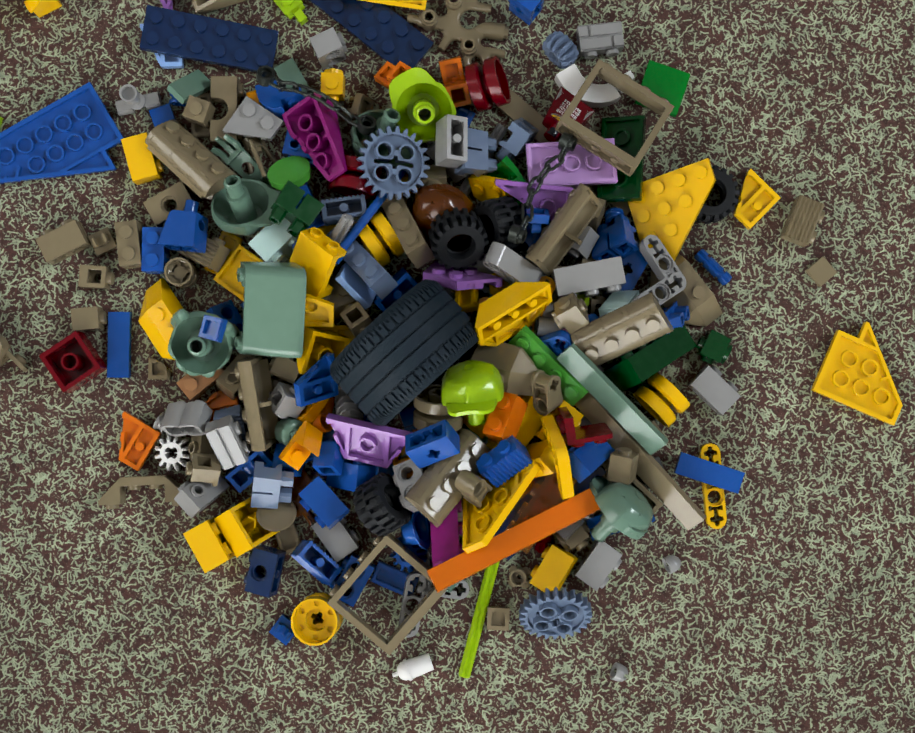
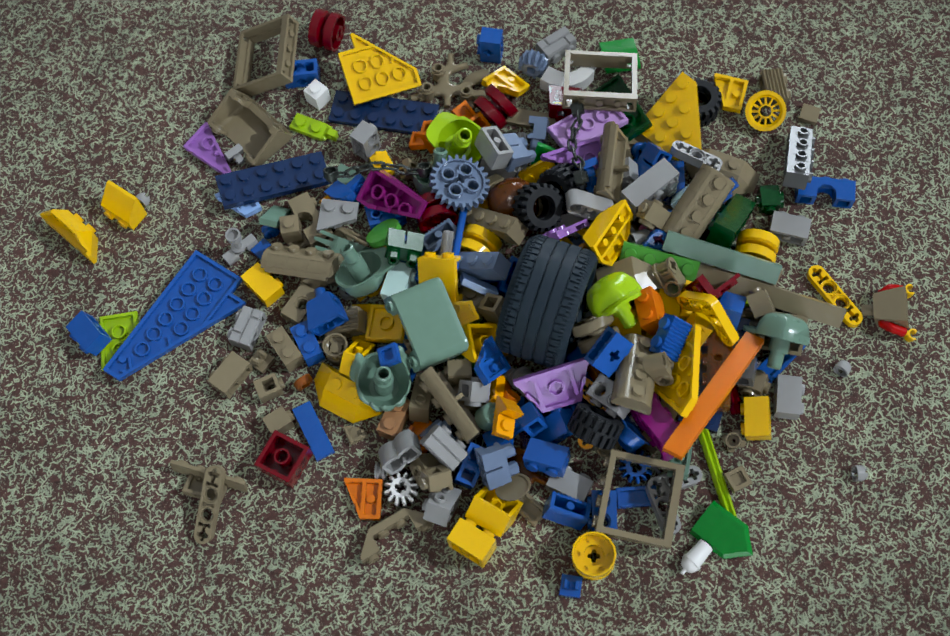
camera: 20 degrees left, 20 degrees down
(103, 199) = (246, 328): none -> light grey brick
(132, 289) = (303, 382): none -> dark orange tile
(195, 295) = (348, 356): none -> yellow brick
(273, 561) = (536, 552): dark blue brick -> none
(453, 659) = (723, 532): none -> green tile
(519, 55) = (506, 82): none -> yellow wing
(555, 613) = (780, 446): sand blue gear -> none
(709, 472) = (826, 284): blue tile -> none
(712, 267) = (732, 149): blue axle -> none
(758, 532) = (891, 310): none -> dark tan torso
(771, 321) = (798, 158): none -> dark grey brick
(772, 264) = (774, 124): none -> yellow wheel
(793, 379) = (840, 190): none -> blue arch
(858, 376) = (885, 168): yellow wing -> none

